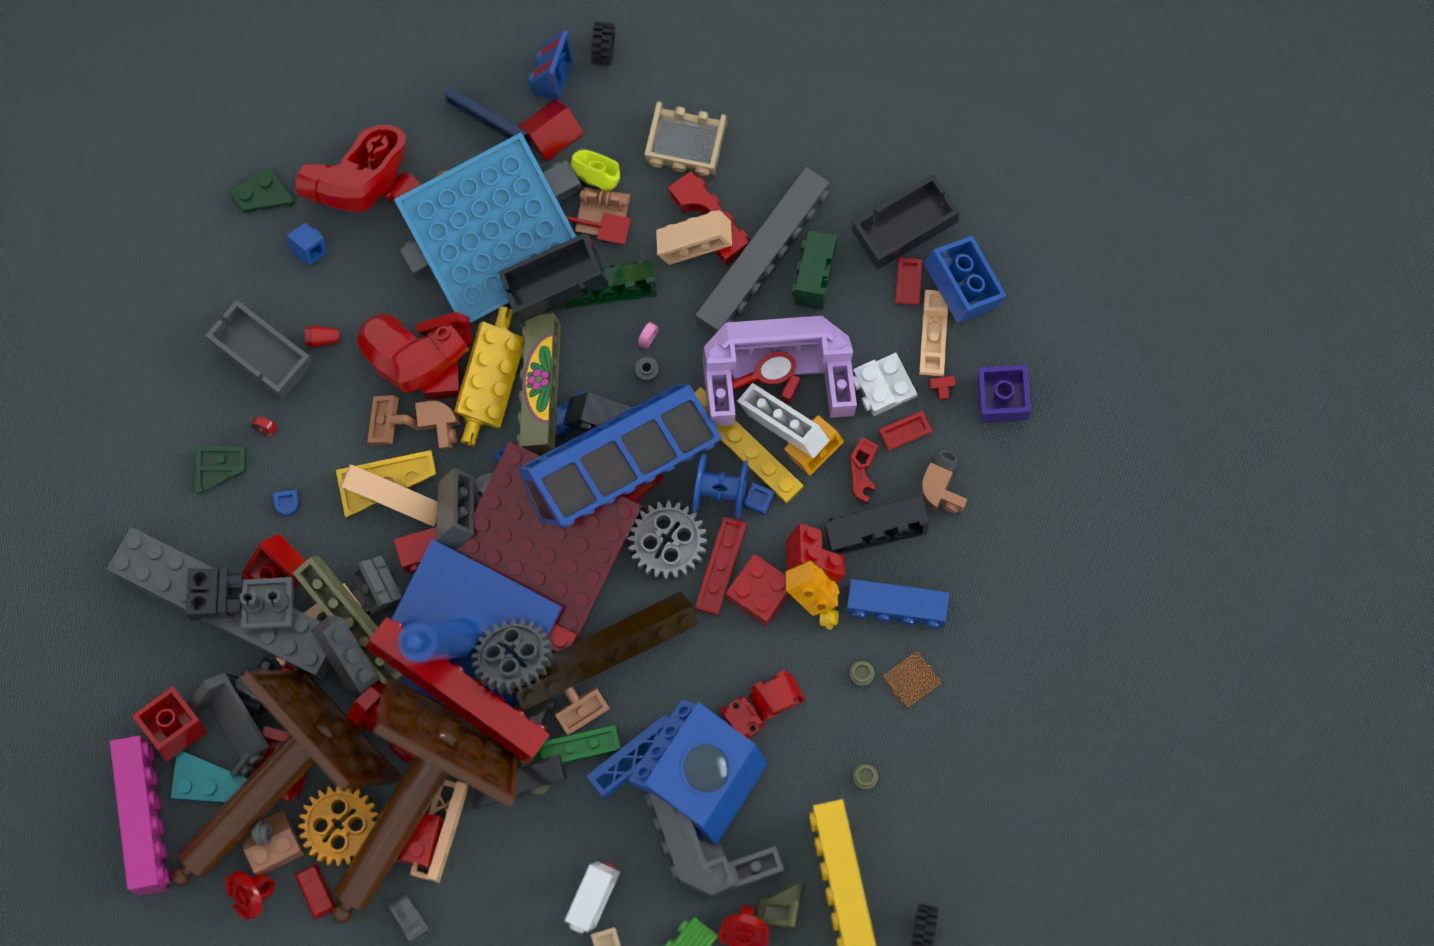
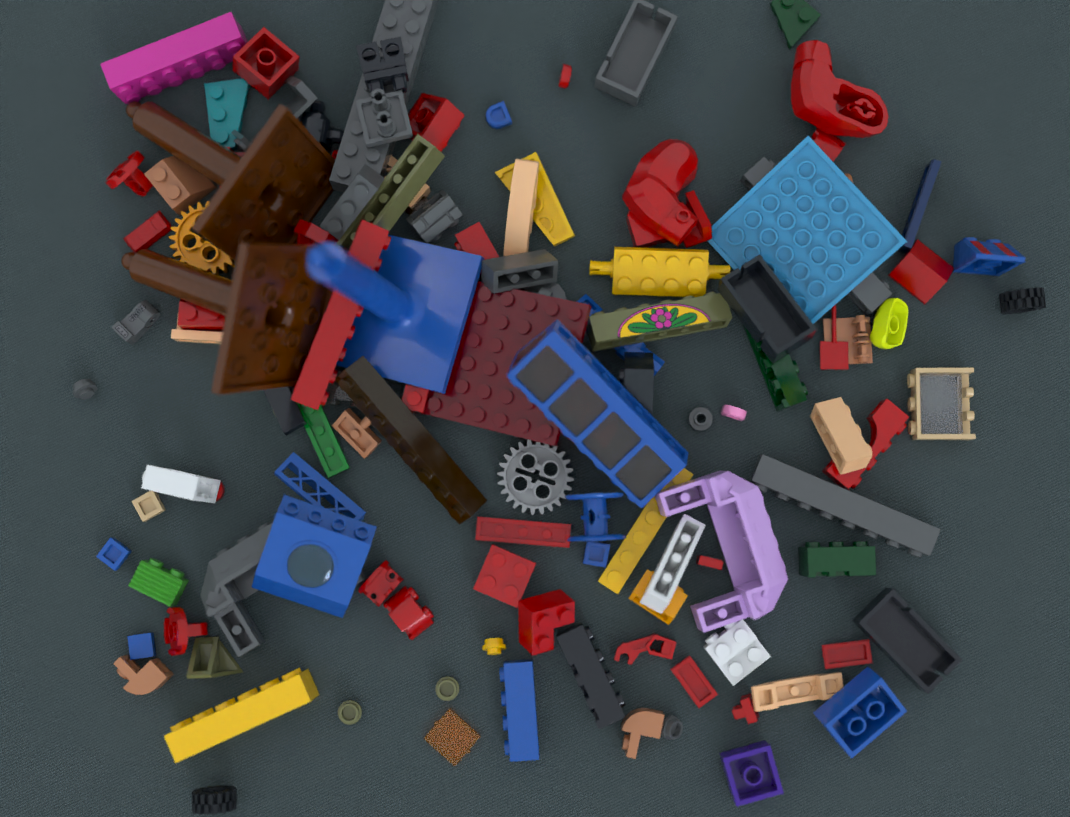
camera: 80 degrees right, 10 degrees up
(218, 465) = (519, 44): dark green wing -> none
(262, 833) = (177, 170): dark grey plate -> none
(307, 244) = (750, 69): blue brick -> none
(320, 336) = (663, 105): red cone -> none
(384, 418) = (595, 185): nougat plate -> none
(440, 417) = (608, 236): nougat brick -> none
(527, 641) = (400, 369): dark grey gear -> none
(770, 370) = (722, 539): red piece -> none
(812, 588) = (512, 627): light orange brick -> none

